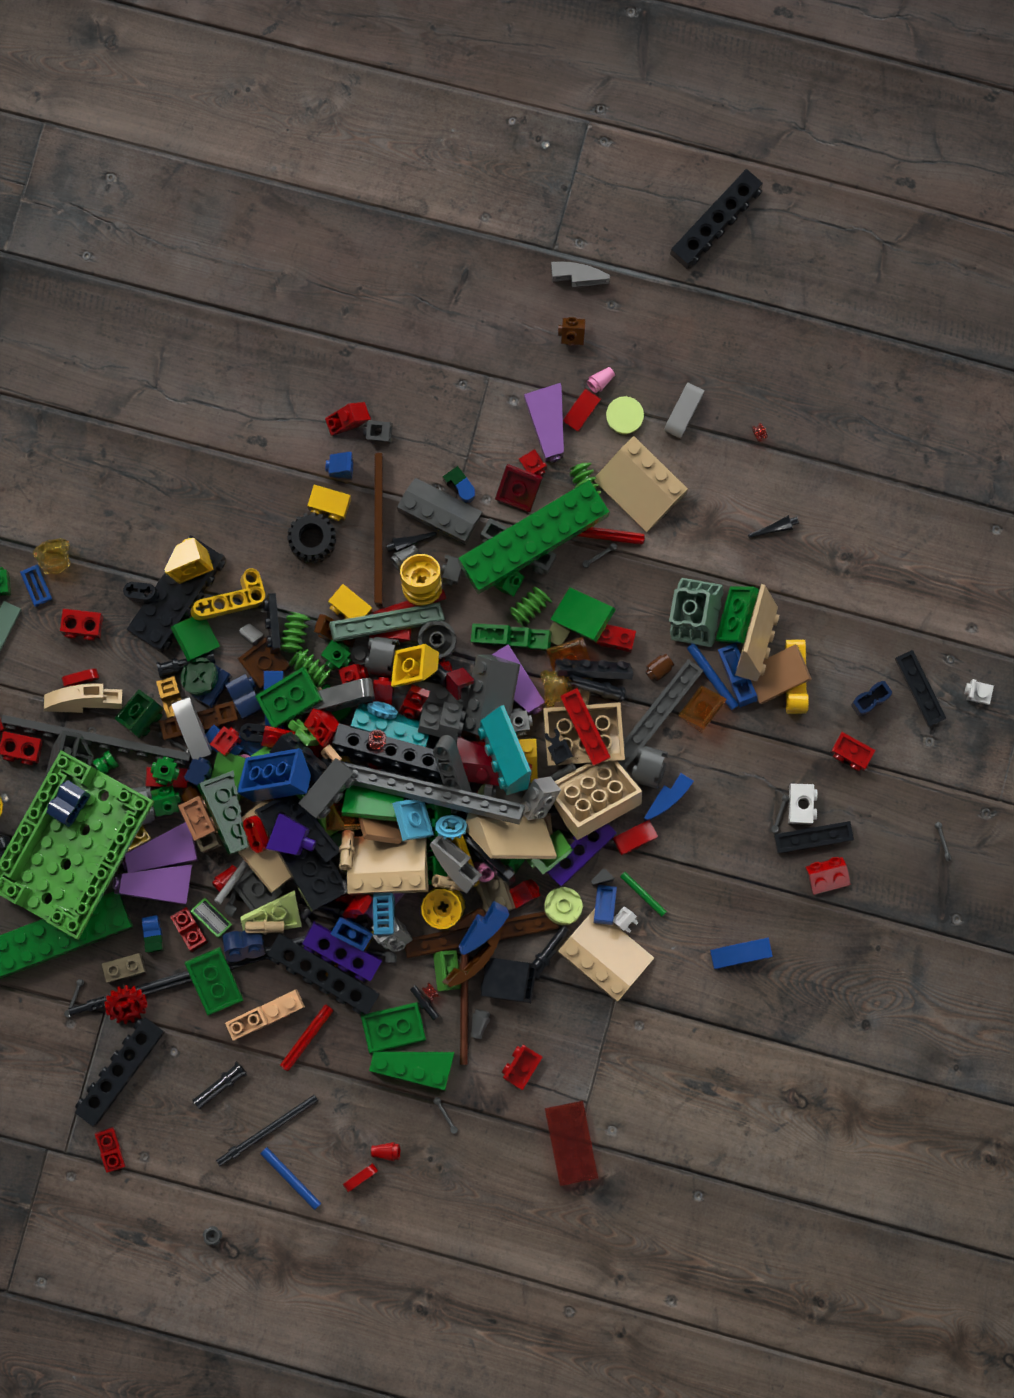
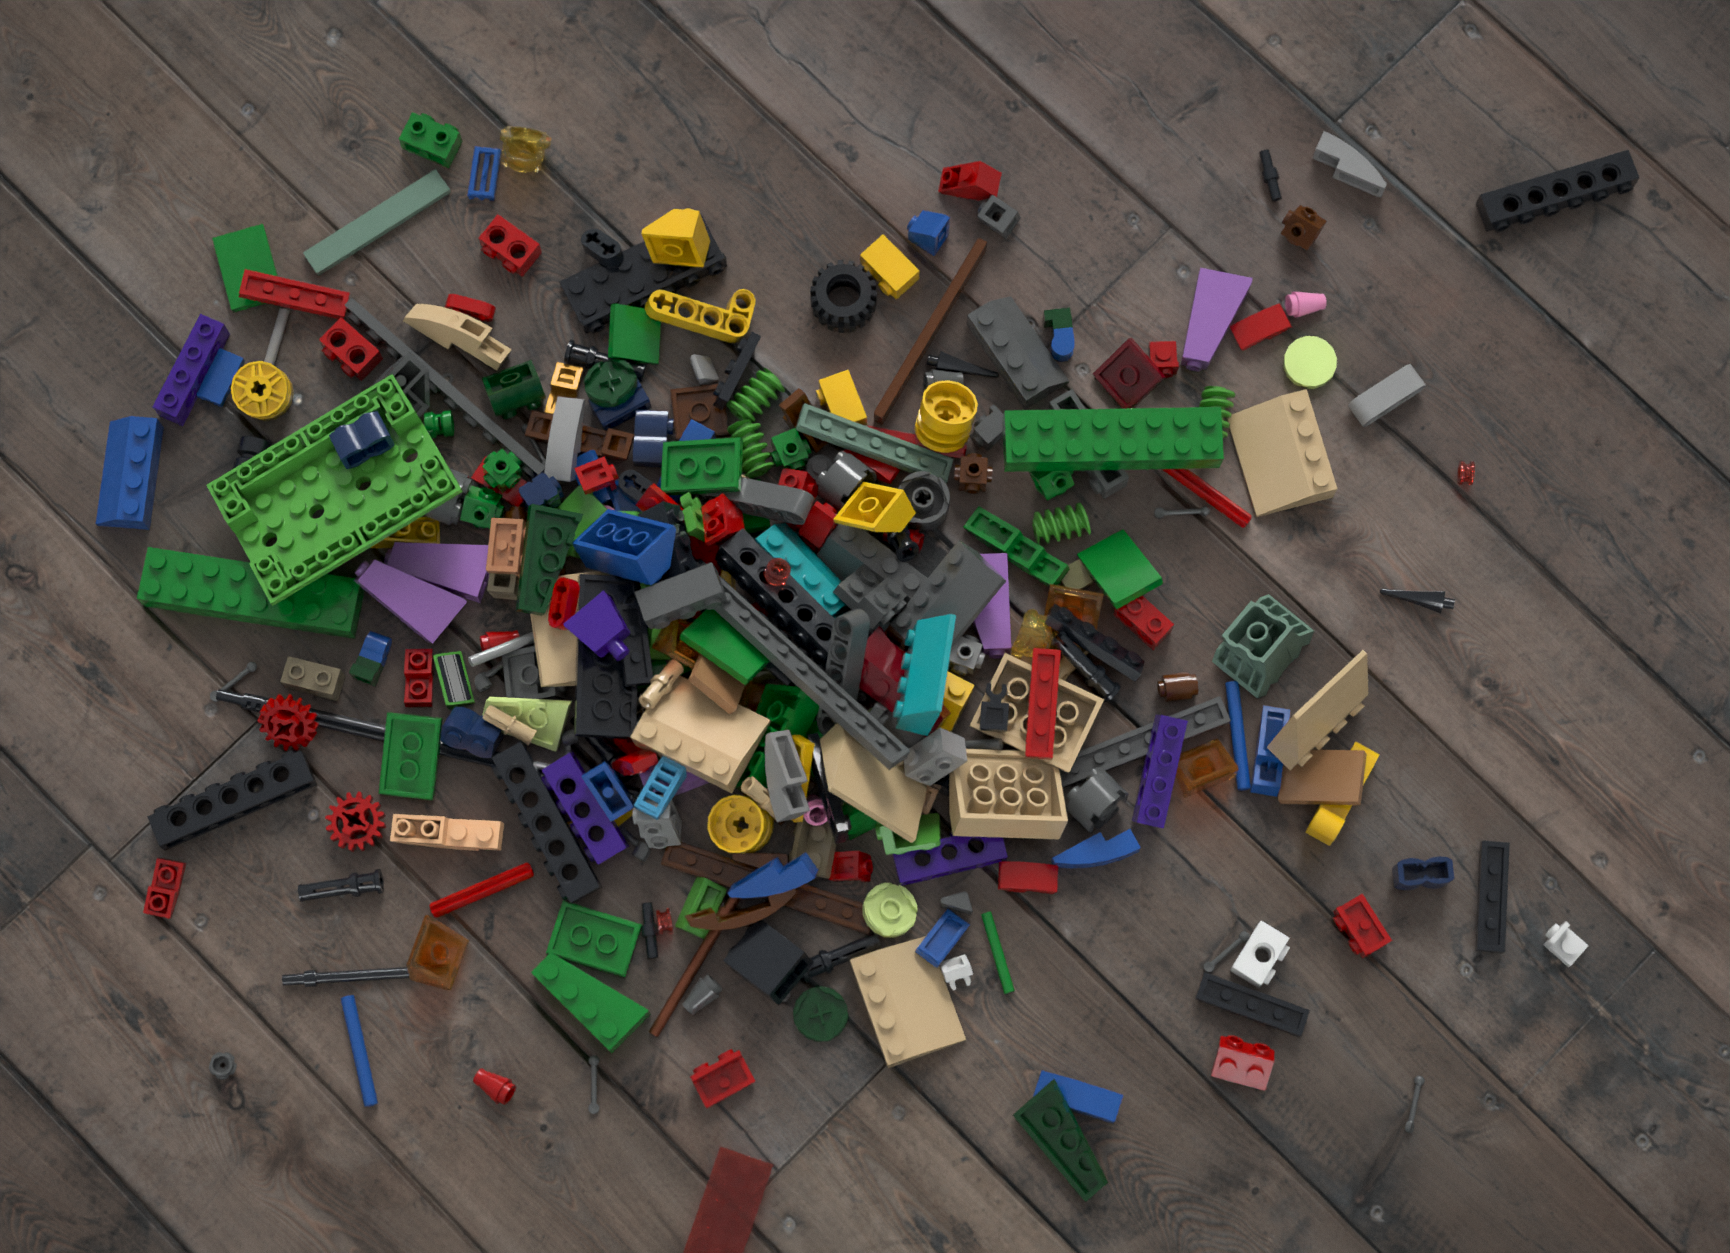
camera: 30 degrees right, 5 degrees down
(204, 1032) = (350, 831): none -> red gear
(304, 1093) = (436, 954): none -> clear orange slope
(329, 752) = (710, 555): light nougat tile -> none
(360, 1177) = (443, 1099): red beam -> none
(382, 710) = (805, 543): medium azure gear -> none
(413, 819) = (763, 692): medium azure tile -> none
(414, 702) = (850, 556): red slope -> none
(451, 821) = (811, 724): medium azure gear -> none
(456, 680) = (918, 559): dark red panel -> none
(458, 612) = (971, 482): none -> reddish brown brick
(533, 308) = (1270, 175): none -> black bar
(557, 993) = (820, 1014): none -> dark green tile
(678, 727) = (1159, 771): none -> dark purple brick
(737, 614) = (1310, 674): green tile -> none
(745, 984) = (1058, 1135): none -> dark green wing

